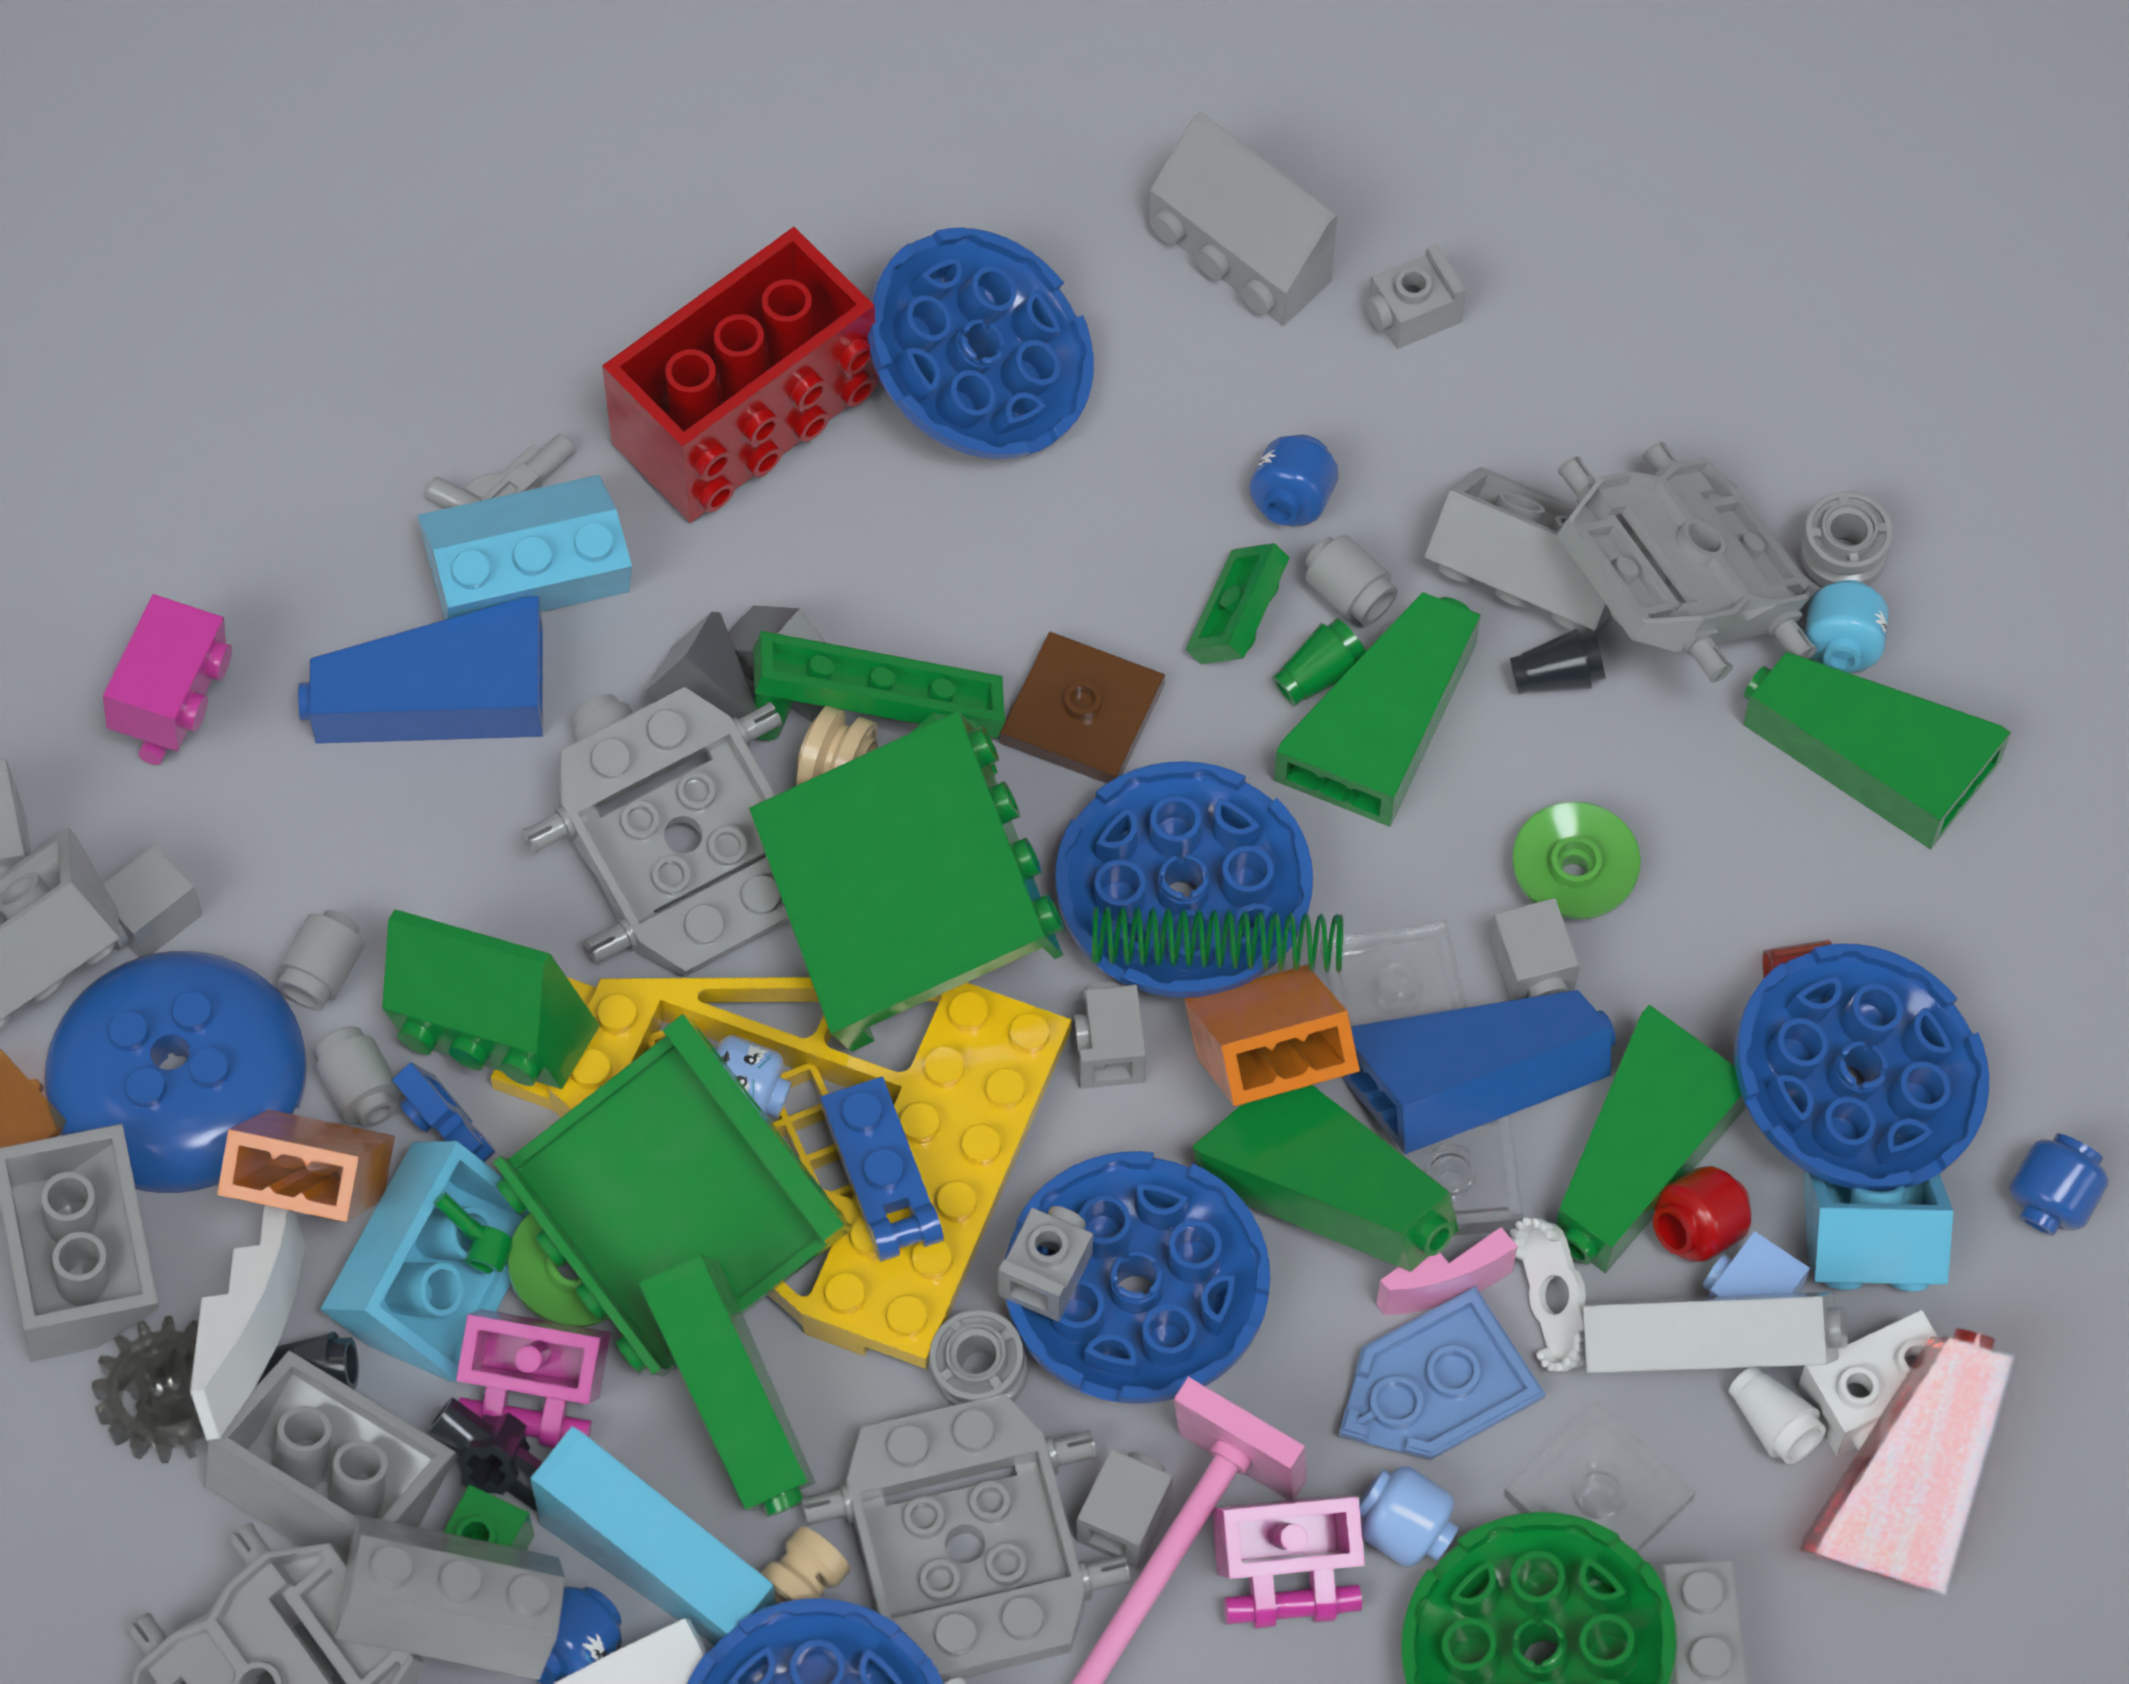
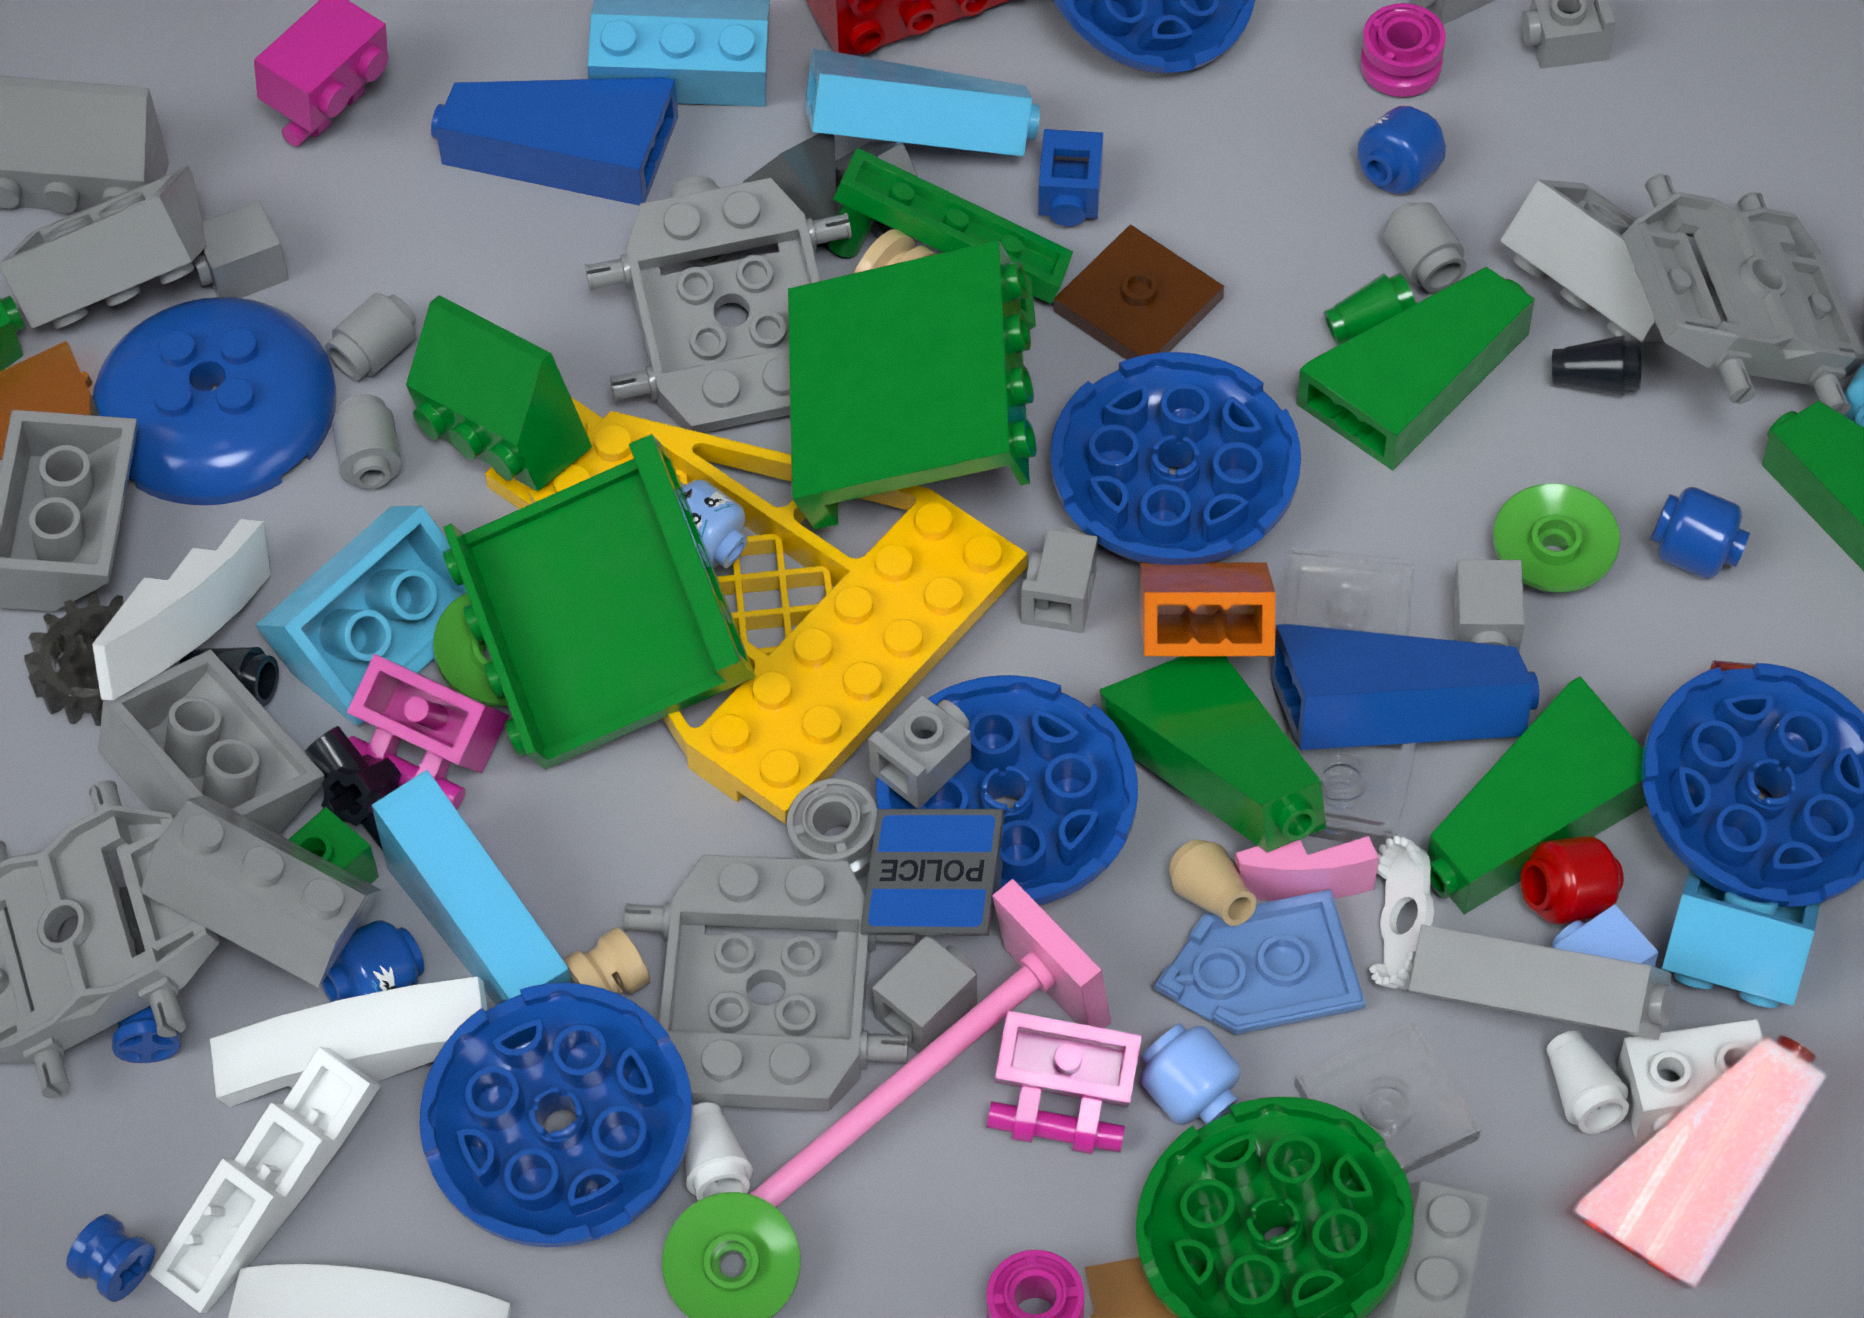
camera: 20 degrees right, 5 degrees down
(306, 1165) = (282, 493): brick -> none
(434, 1107) = (424, 483): blue plate -> none
(489, 1245) = (424, 607): green hand -> none
(729, 1383) = (590, 774): green slope -> none
(791, 559) = (917, 105): none -> medium azure slope
(880, 1167) = (800, 630): blue plate -> none
(974, 595) = (1069, 187): none -> blue brick
(1099, 1385) = (933, 872): none -> piece
(1220, 953) = (1063, 499): green piece -> none
(1237, 603) = (1323, 231): green plate -> none
(1264, 345) = (1402, 49): none -> dark pink wheel
(1360, 1312) = (1209, 879): none -> tan cone
(1712, 818) = (1700, 532): none -> blue head

